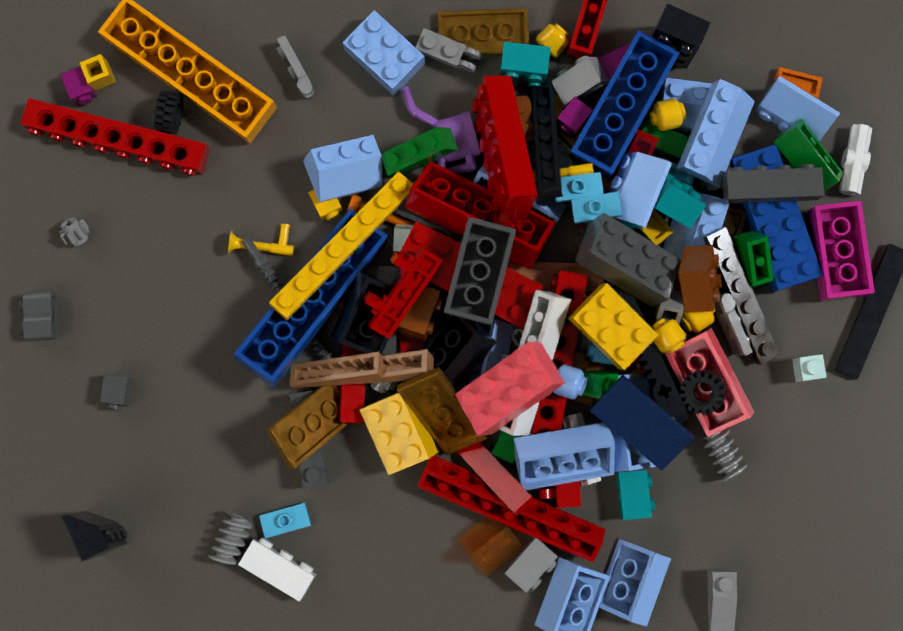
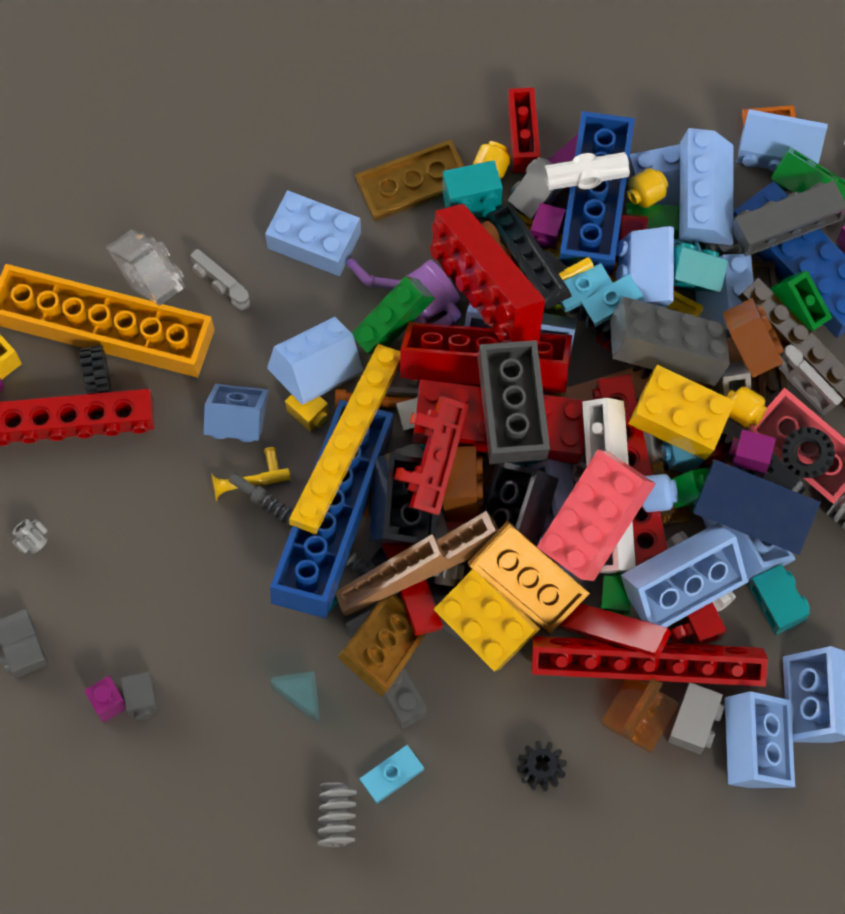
camera: 20 degrees left, 15 degrees down
(88, 384) = (105, 699): none -> magenta brick
(94, 534) = (181, 860): black slope -> none
(235, 39) = (146, 266): none -> clear brick
(239, 433) = (300, 691): none -> clear light blue slope
(268, 185) = (235, 412): none -> medium blue slope
(278, 568) = (405, 830): white brick -> none
(392, 553) = (539, 777): none -> black gear
(446, 50) = (383, 207): light grey hinge -> none
(619, 88) = (586, 171): none -> white piece
(657, 377) = (752, 451): none -> magenta brick
(681, 32) = (628, 97): black brick -> none
(697, 320) = (769, 383): yellow head -> none

